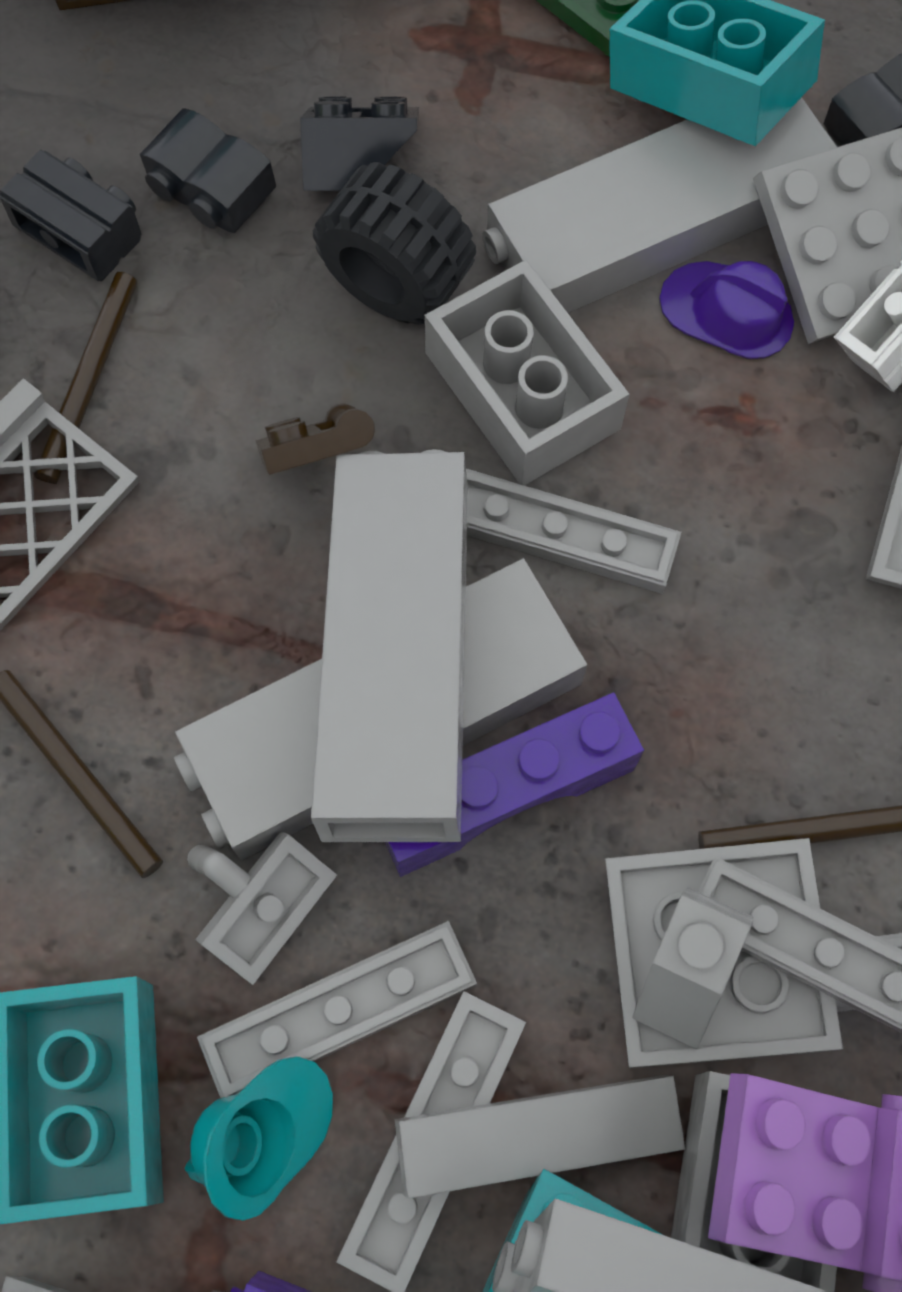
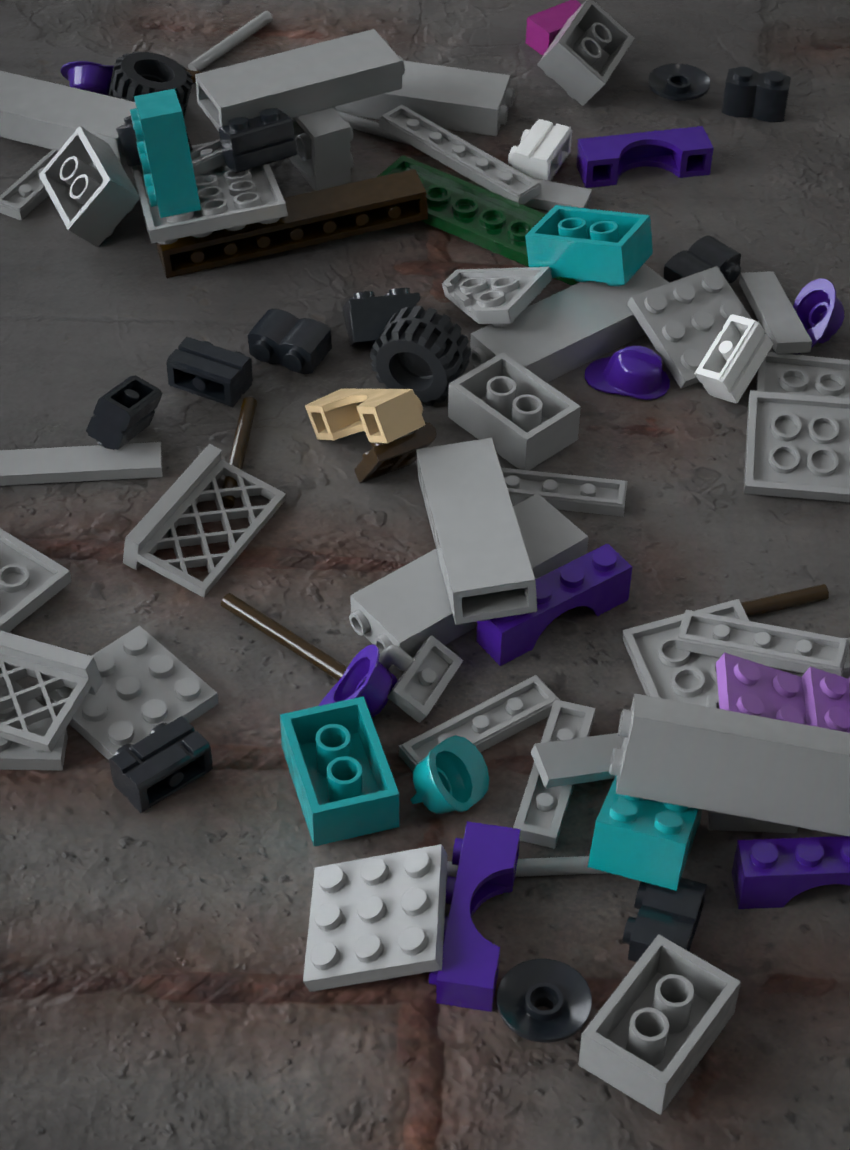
camera: 10 degrees left, 25 degrees down
(147, 921) = (364, 678): none -> dark purple piece
(283, 373) = (378, 412): none -> tan arch
(547, 123) = (495, 293): none -> light grey plate
(692, 967) = (685, 651): light grey slope -> none

